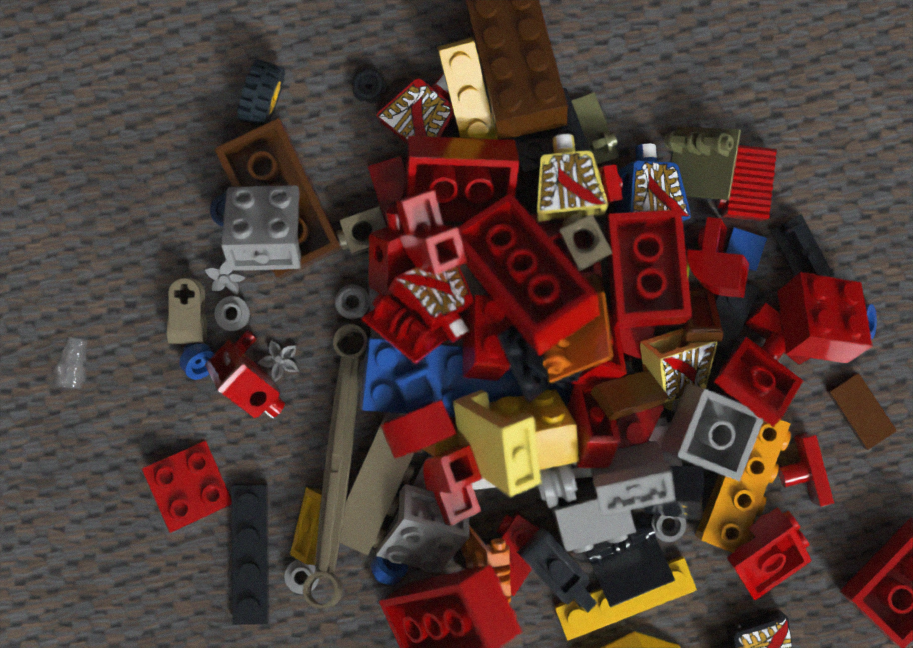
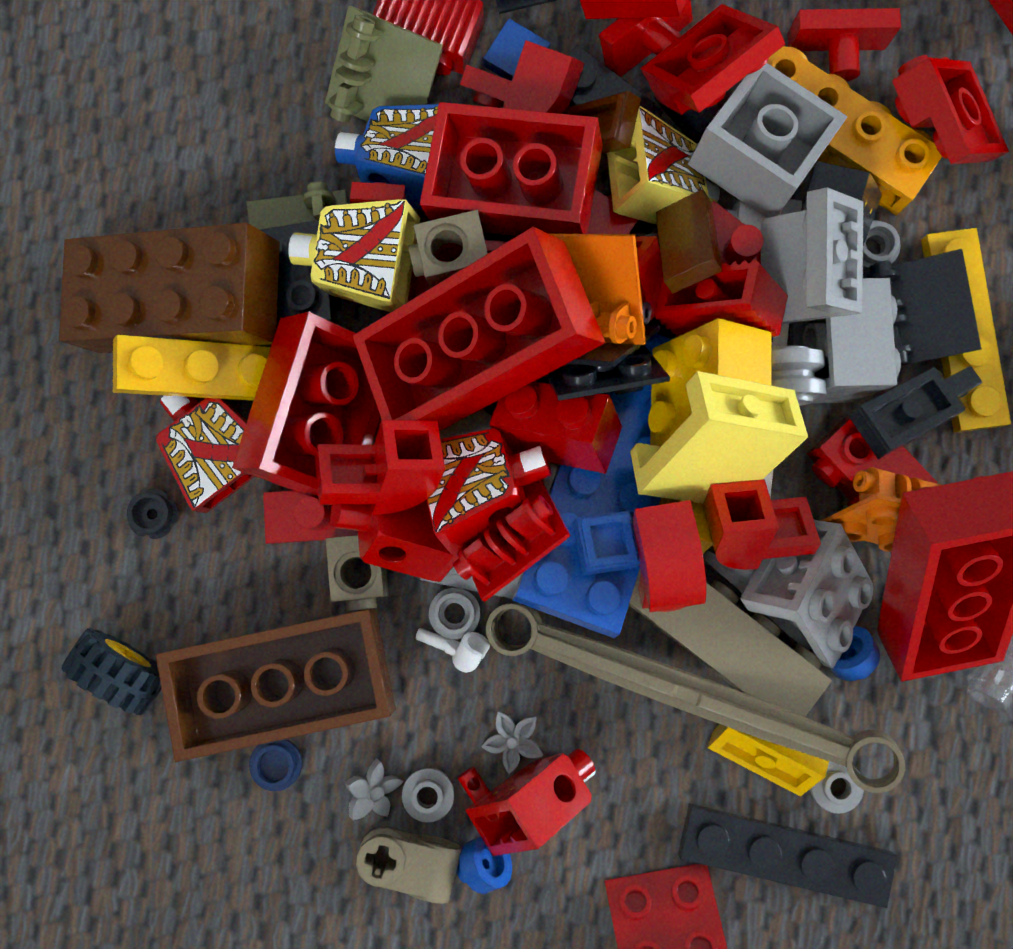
camera: 75 degrees left, 5 degrees down
(261, 228) = (311, 720): light grey bracket -> none
(328, 315) = (465, 653): none -> white hand

